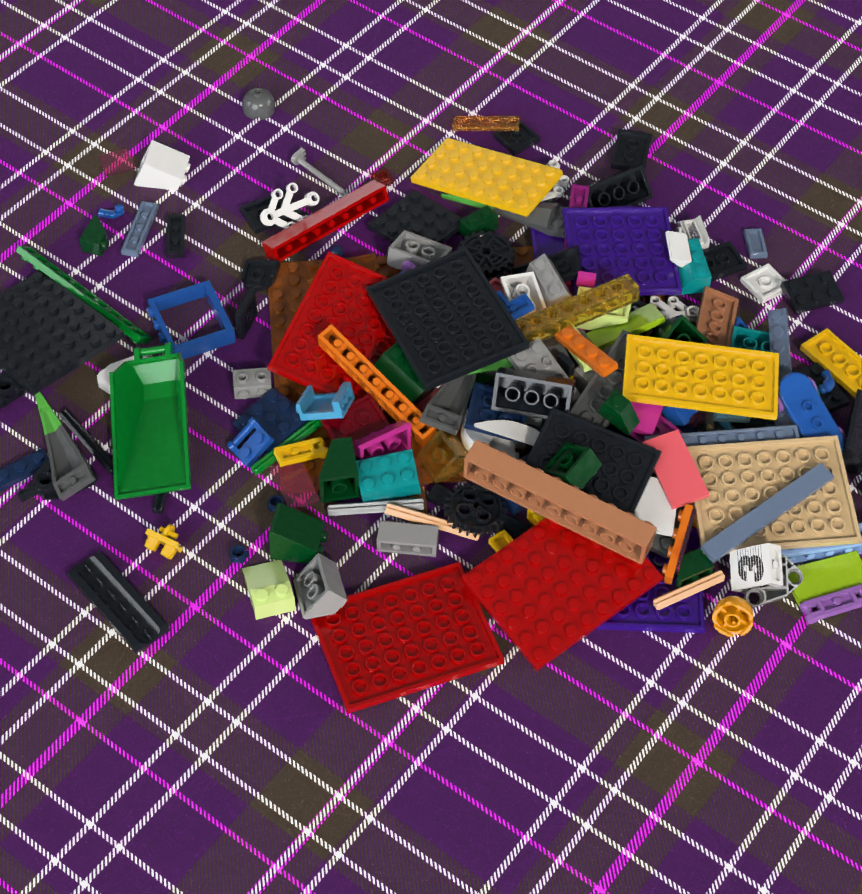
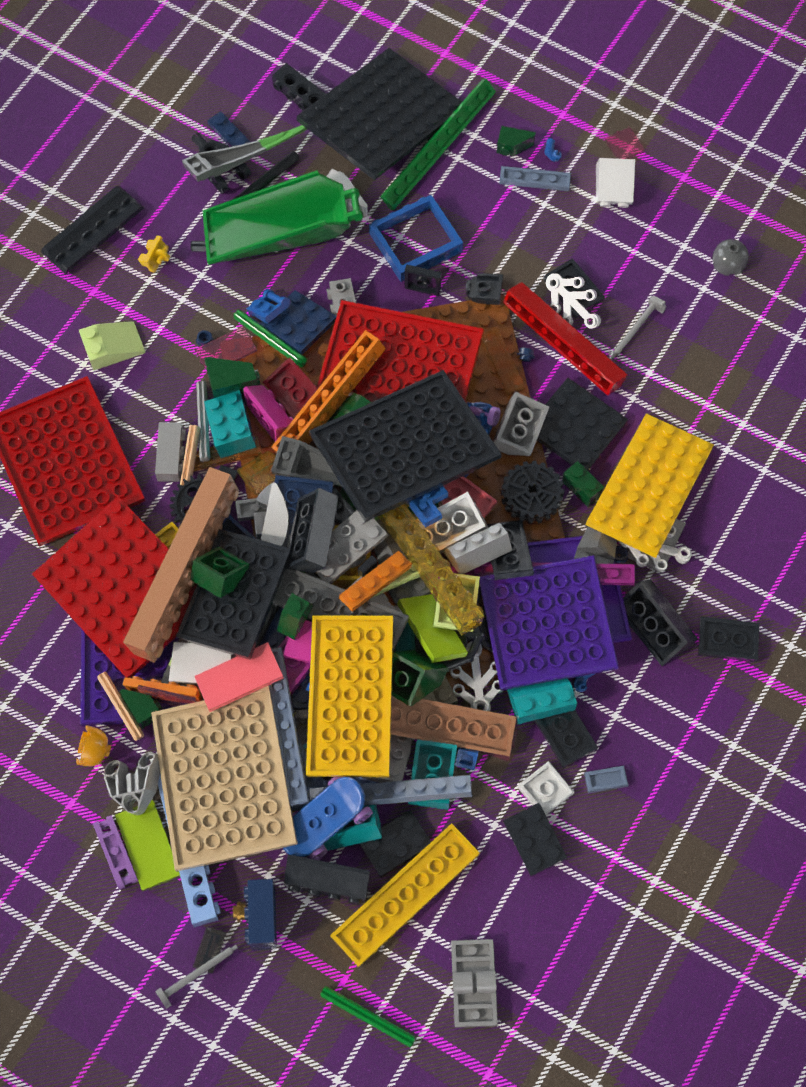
camera: 85 degrees right, 15 degrees up
(175, 236) = (527, 209): black plate -> none
(238, 550) = (146, 311): dark blue plate -> none
(295, 535) = (160, 355): dark green slope -> none
(301, 451) = (257, 348): yellow plate -> none
(319, 588) = (104, 382): light grey slope -> none
(325, 405) = (306, 356): dark azure panel -> none
(383, 176) = (639, 386): clear red plate -> none
(486, 123) = (743, 482): clear orange tile -> none
(517, 141) = (731, 517): black tile -> none
(585, 279) = (488, 582): dark pink tile -> none
(678, 248) = (554, 679): white slope -> none
(695, 229) = (600, 706): white window -> none
(756, 567) = (130, 764): white panel -> none
(767, 512) = (197, 772): sand blue tile -> none
(828, 383) = (393, 849): blue arm -> none

